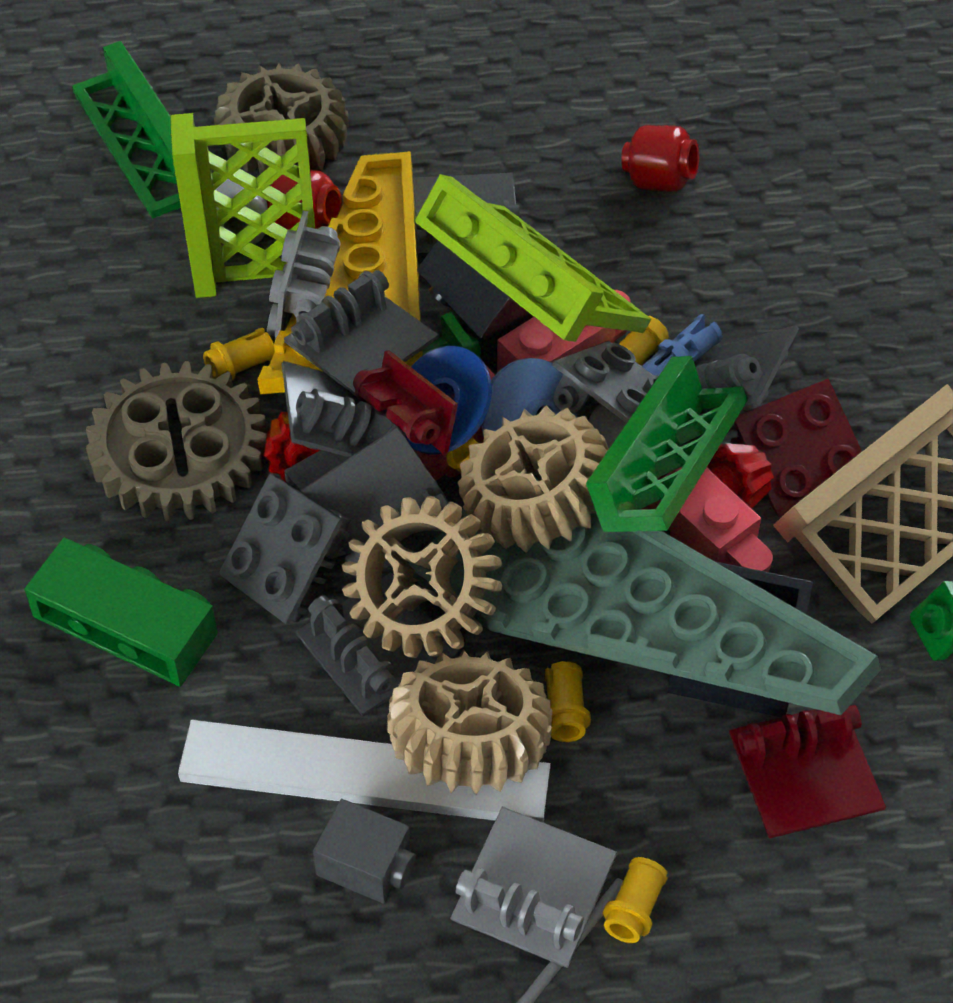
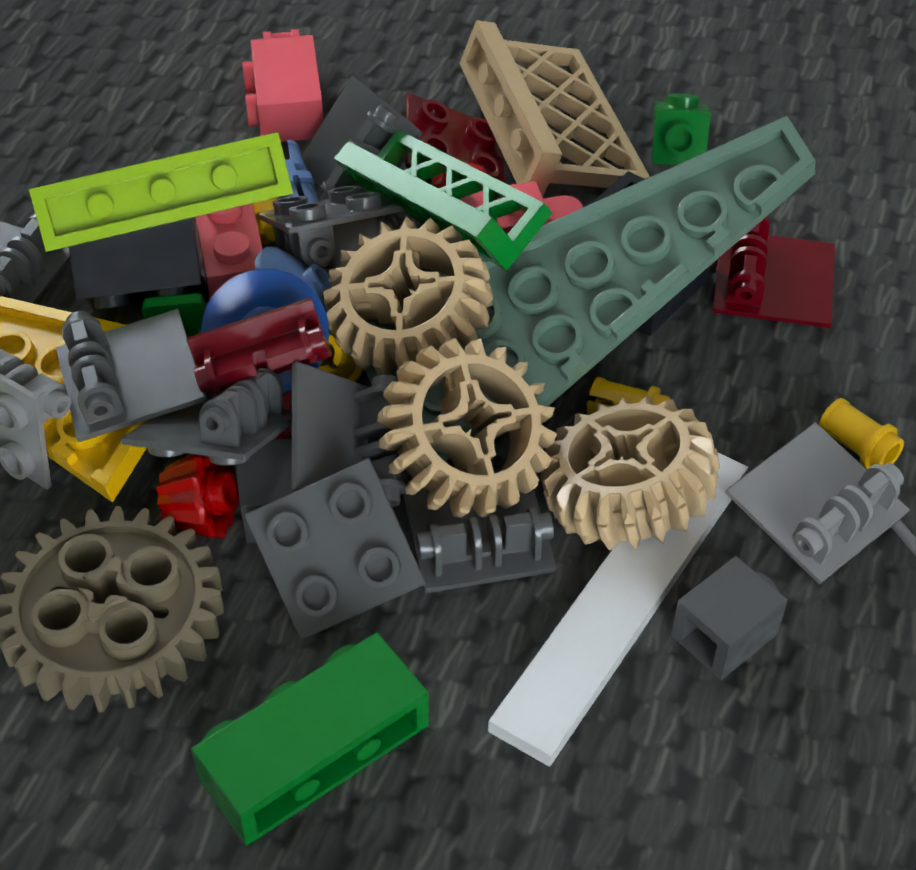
camera: 65 degrees left, 5 degrees down
(239, 353) = (31, 511): yellow pin -> none
(661, 158) = (63, 106): red head -> none
(797, 287) = (285, 86): none -> coral brick

